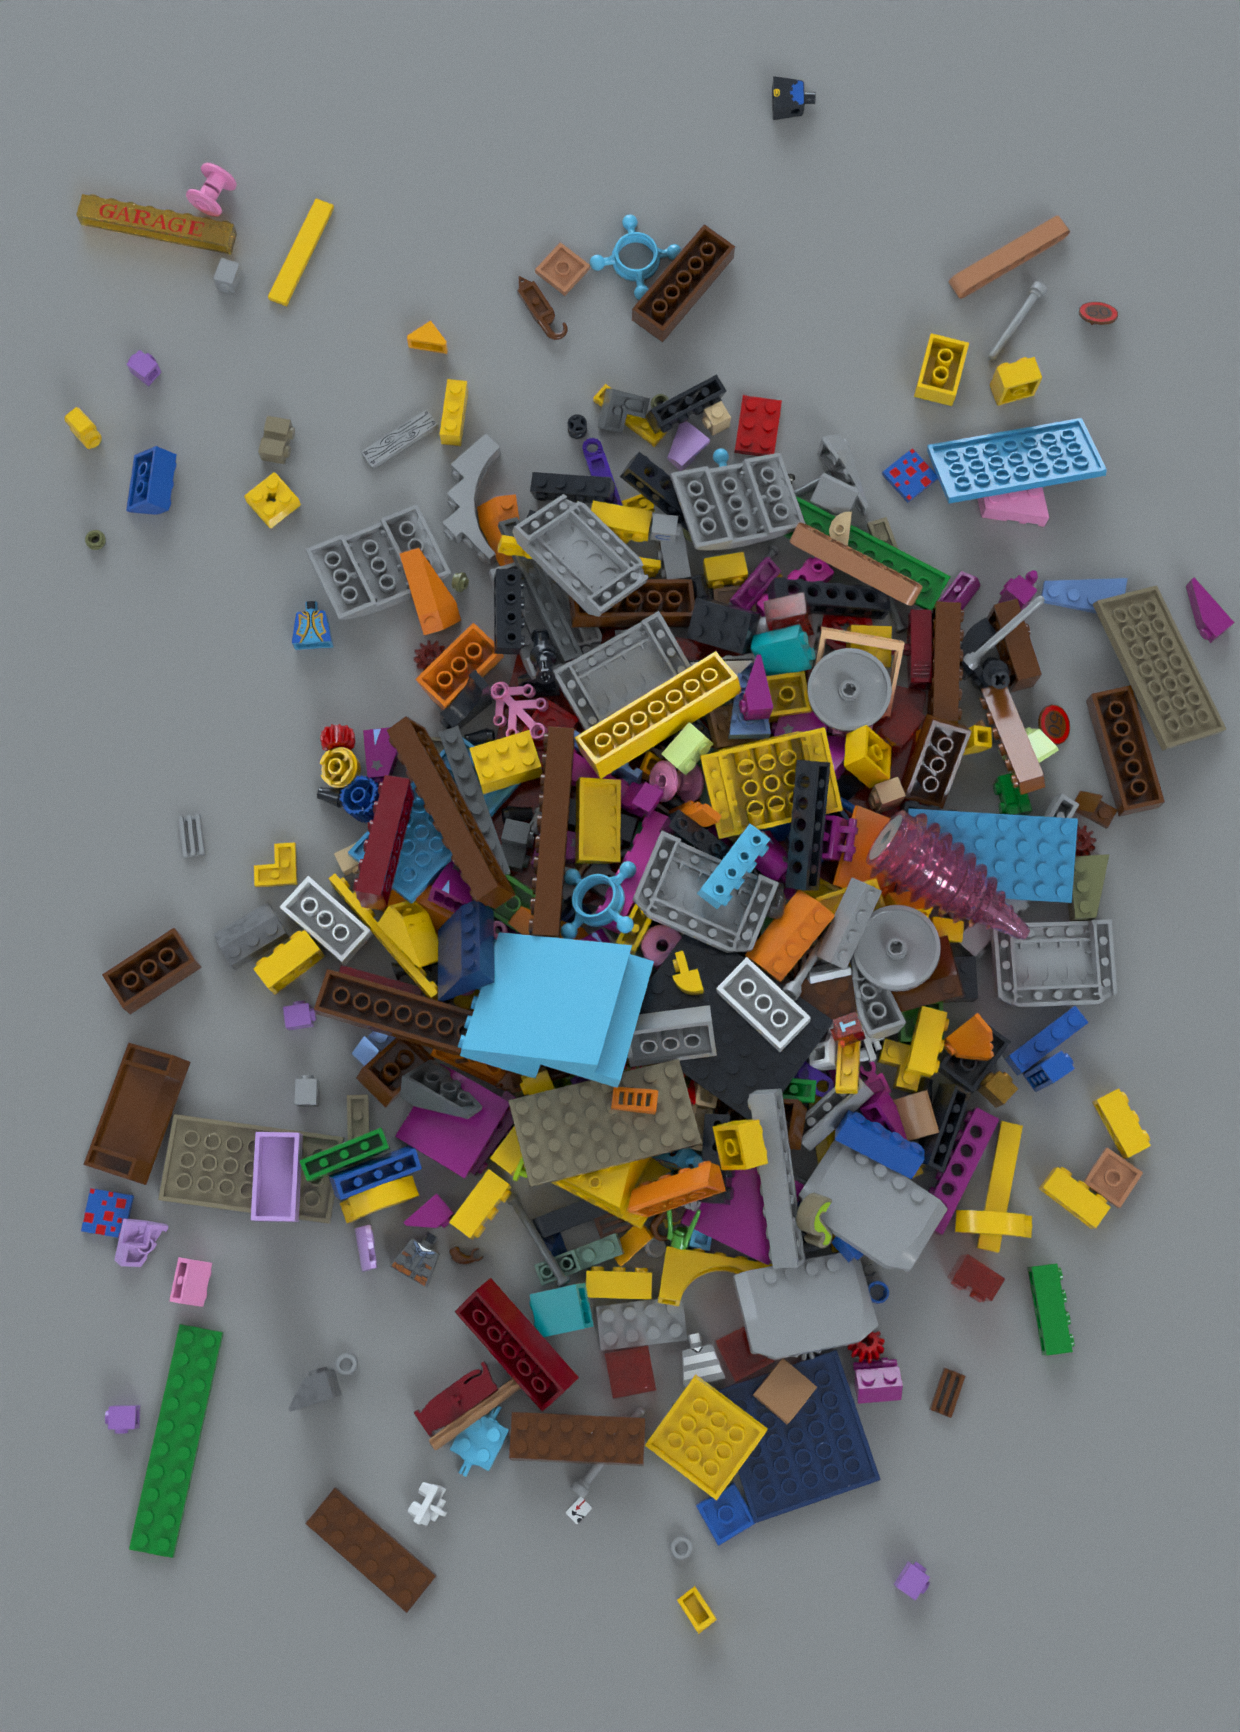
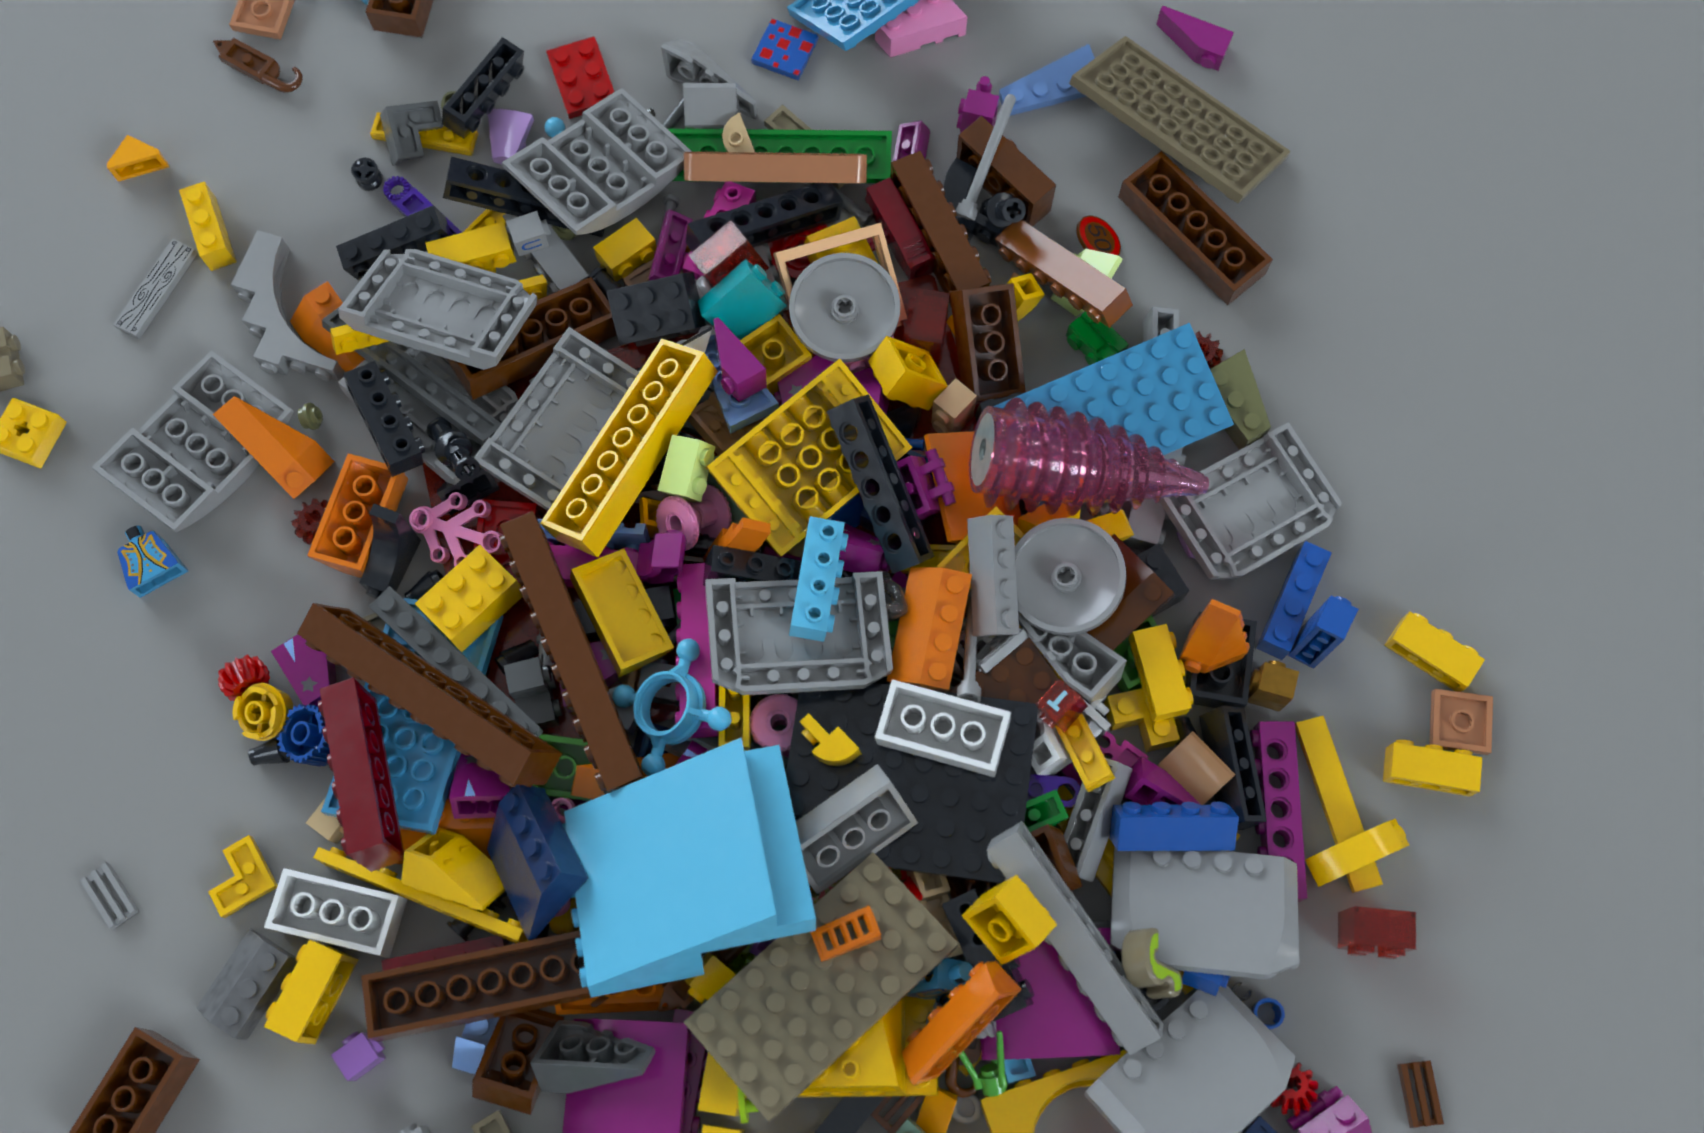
camera: 25 degrees left, 5 degrees down
(716, 418) = (528, 88): tan brick -> none
(1050, 1309) = (1483, 921): green brick -> none
(1095, 809) = (1197, 309): reddish brown slope -> none

